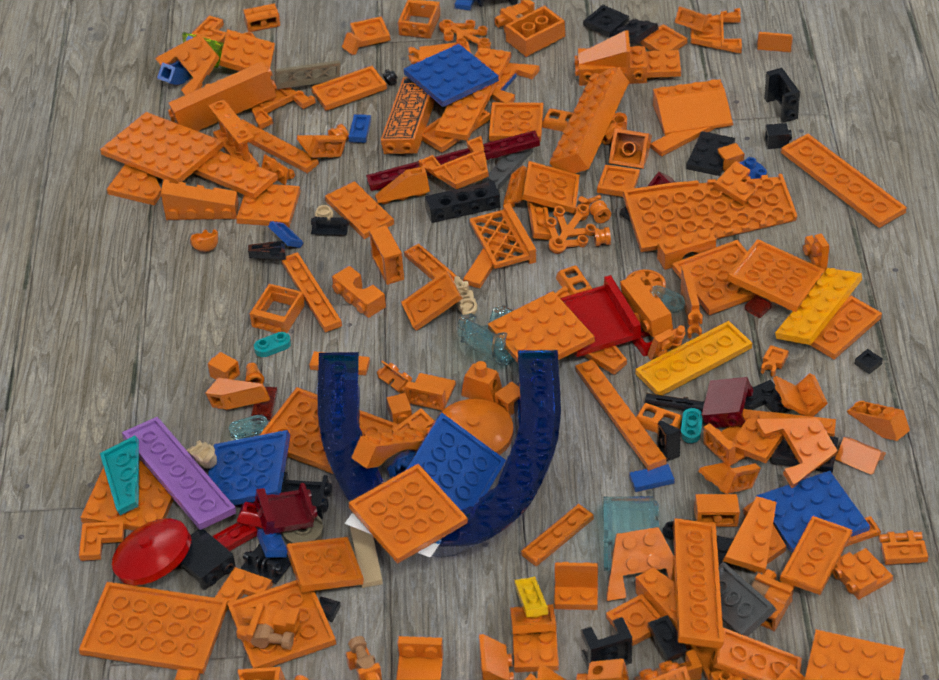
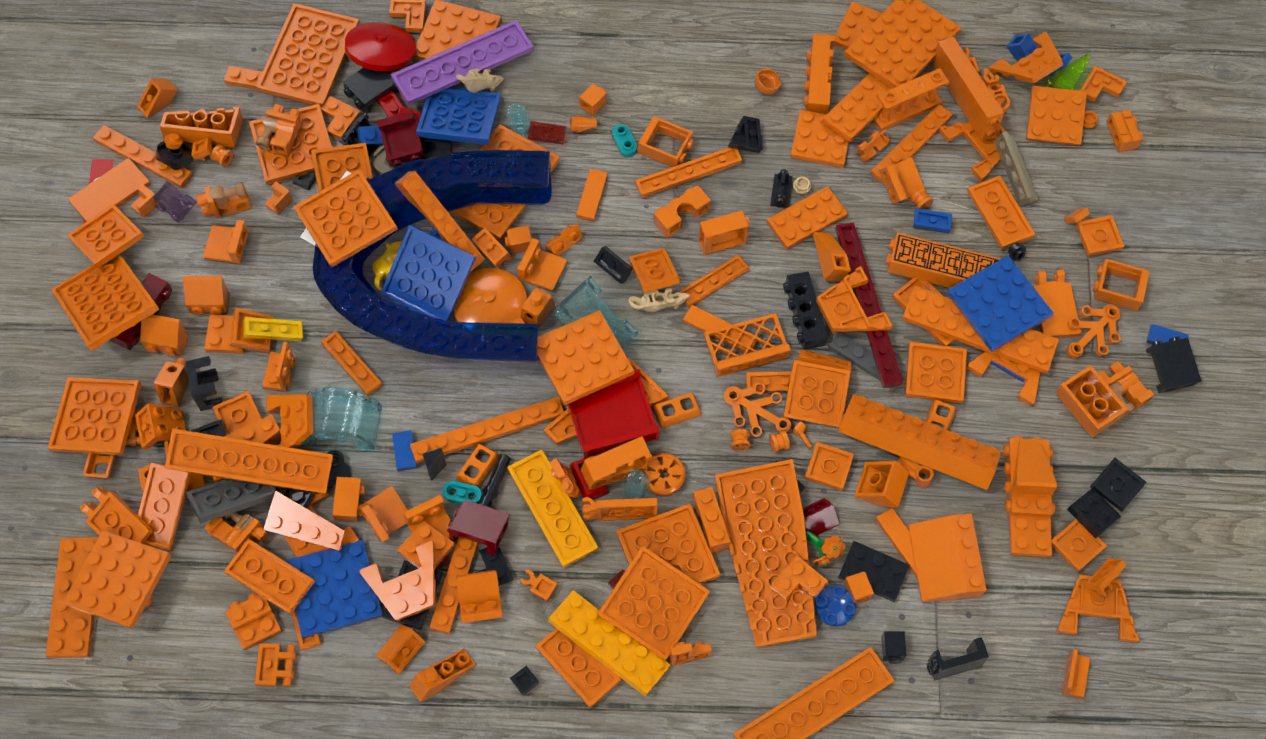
camera: 90 degrees right, 20 degrees up
(122, 473) = (469, 21): teal wing -> none
(235, 393) = (557, 102): orange slope -> none
(285, 234) = (771, 150): blue tile -> none
(357, 624) = (280, 198): none -> orange panel
(423, 336) = (613, 264): none -> black plate
(699, 169) = (831, 547): none -> orange plant

